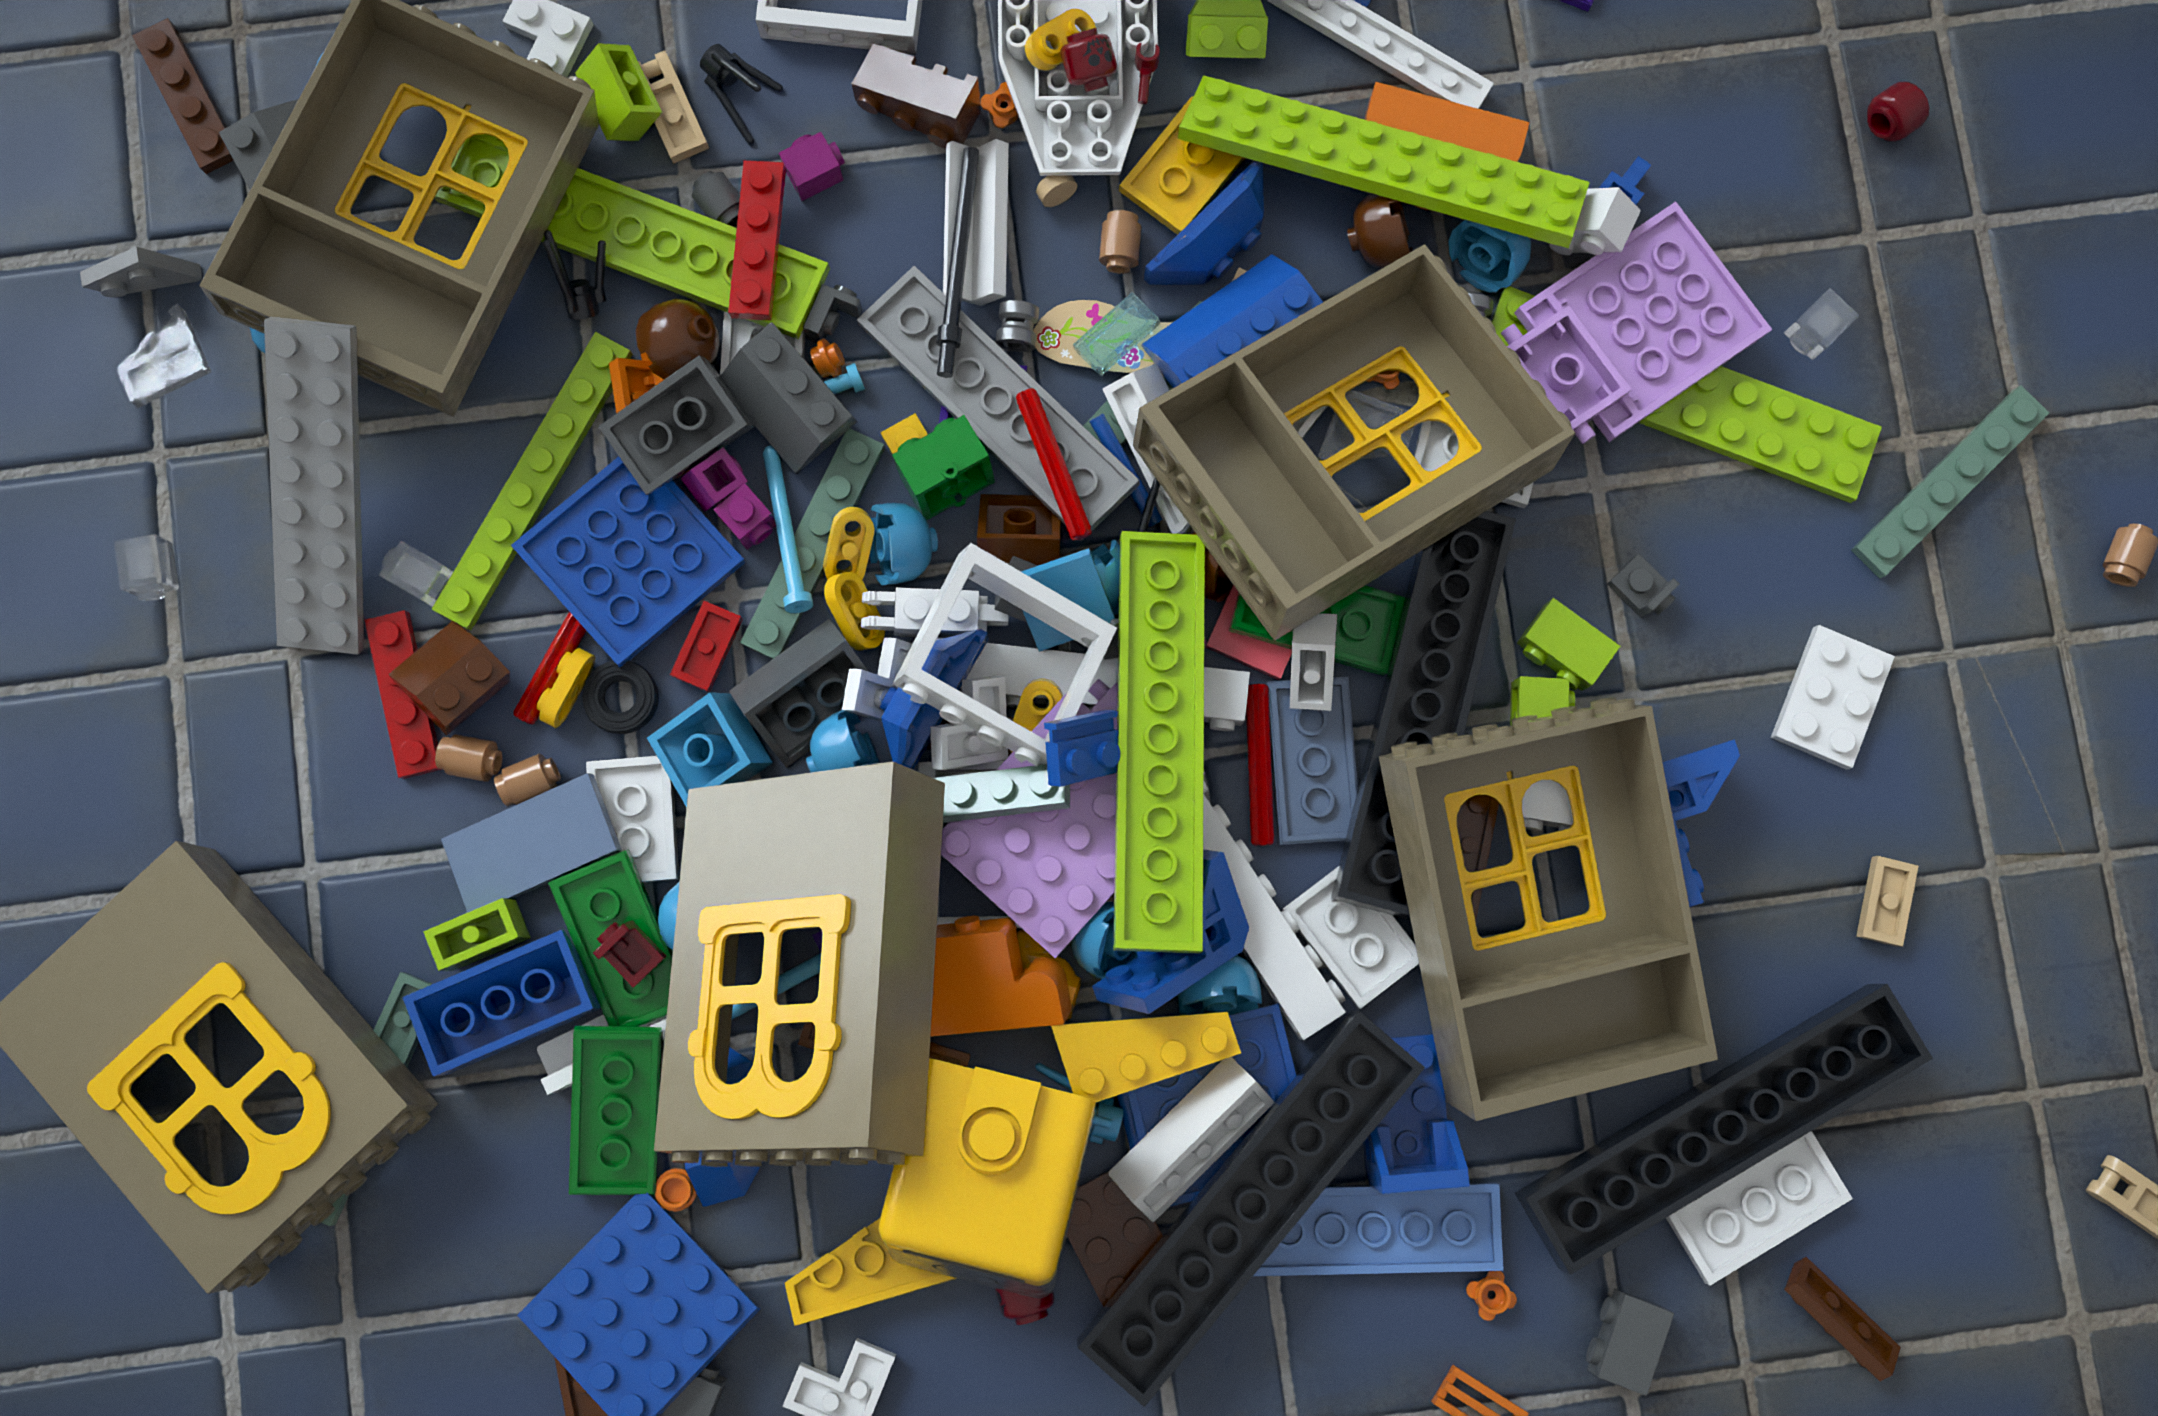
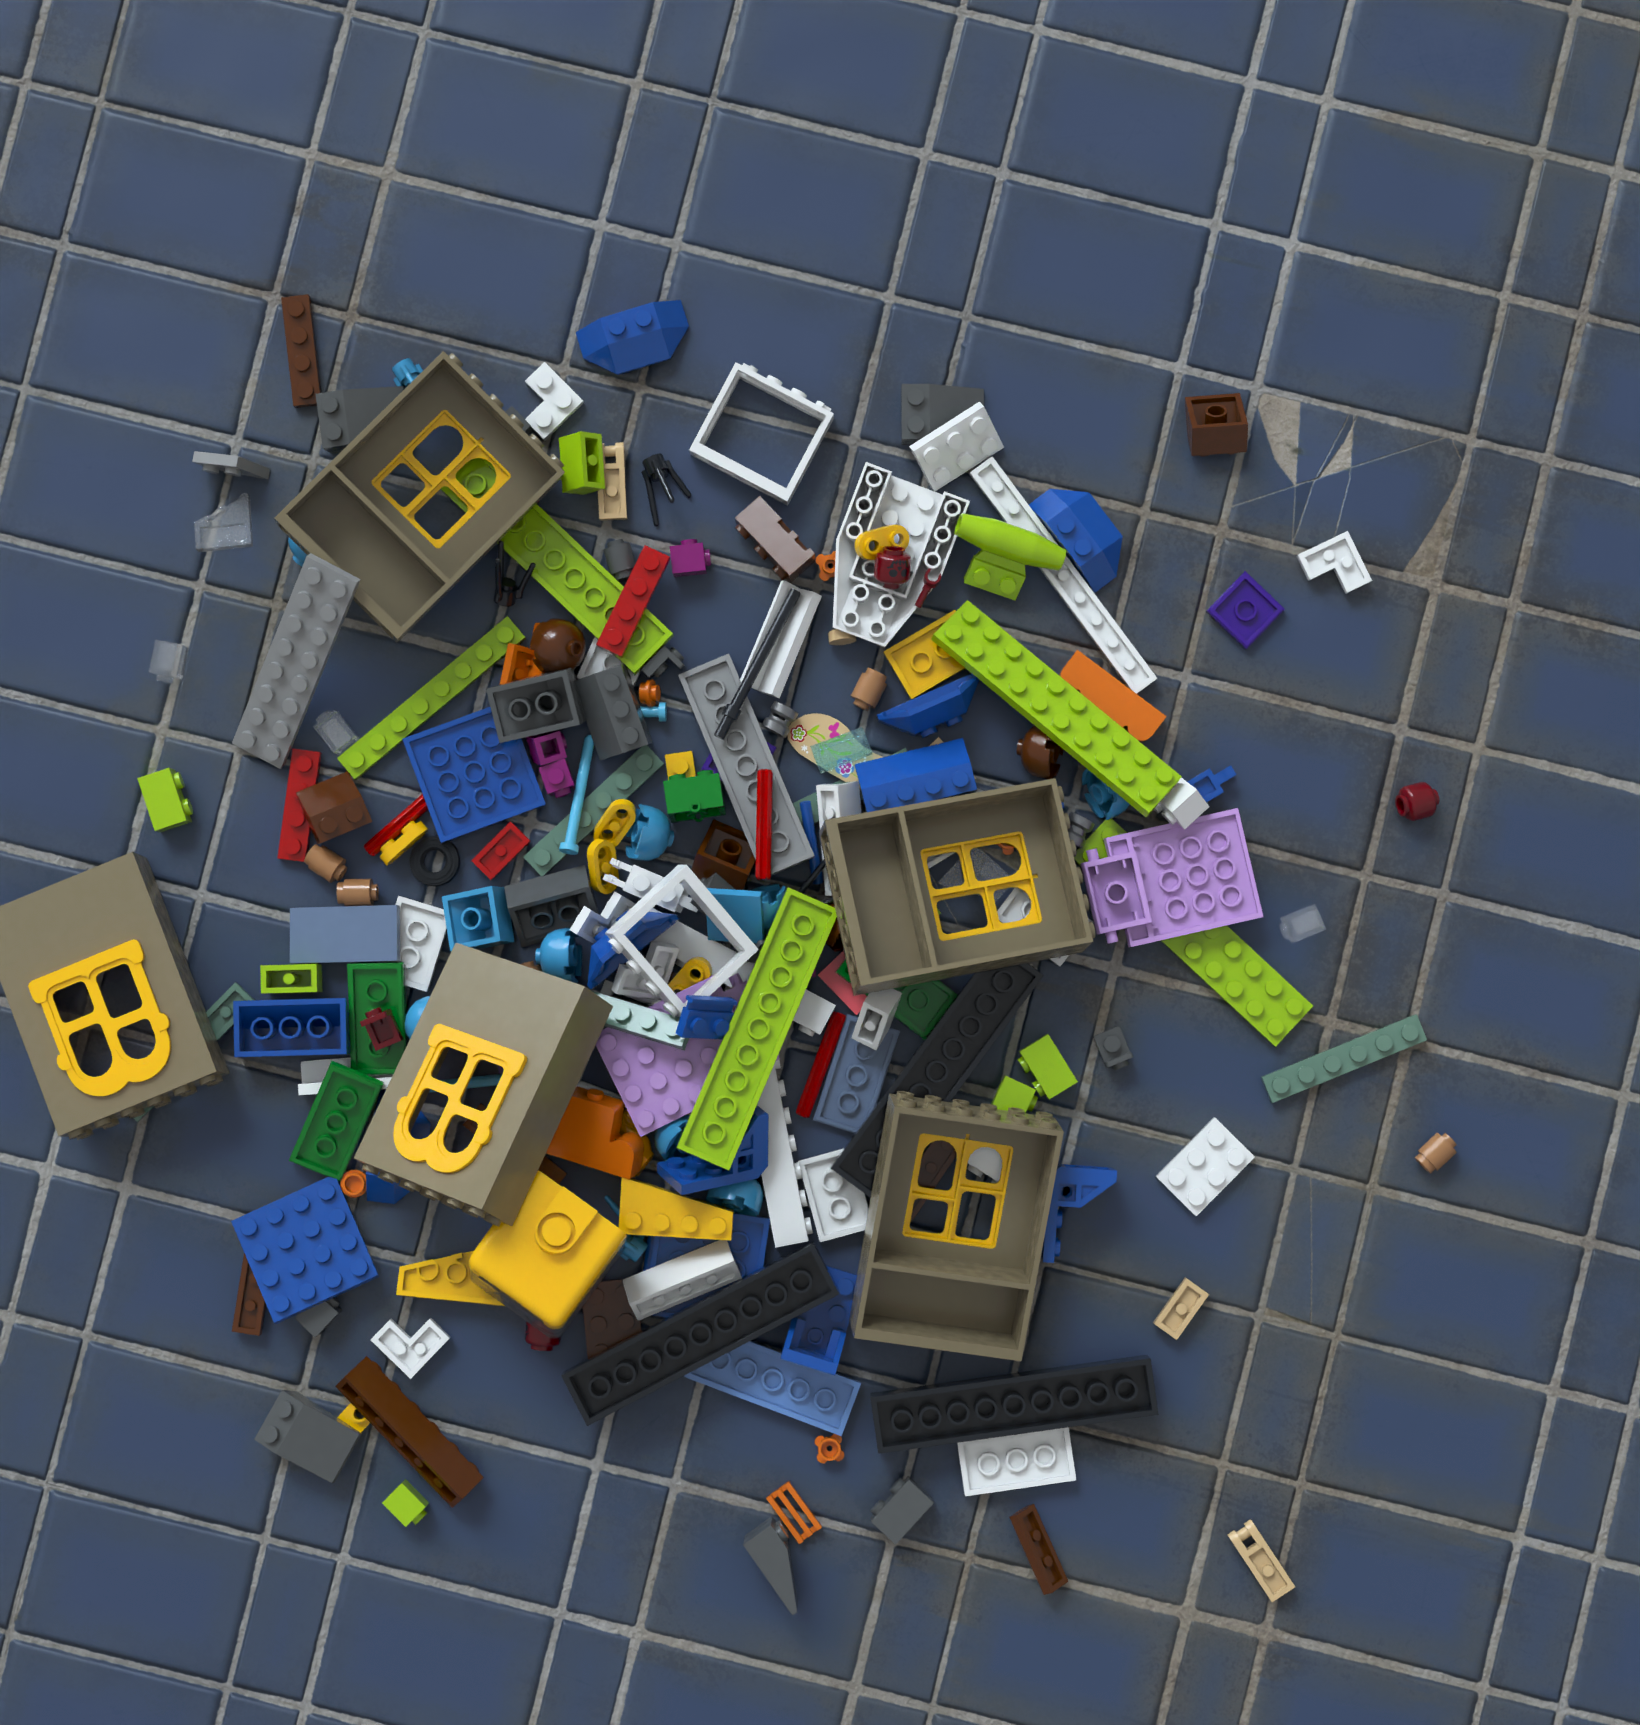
camera: 30 degrees right, 5 degrees up
(210, 757) = (165, 799): none -> lime brick

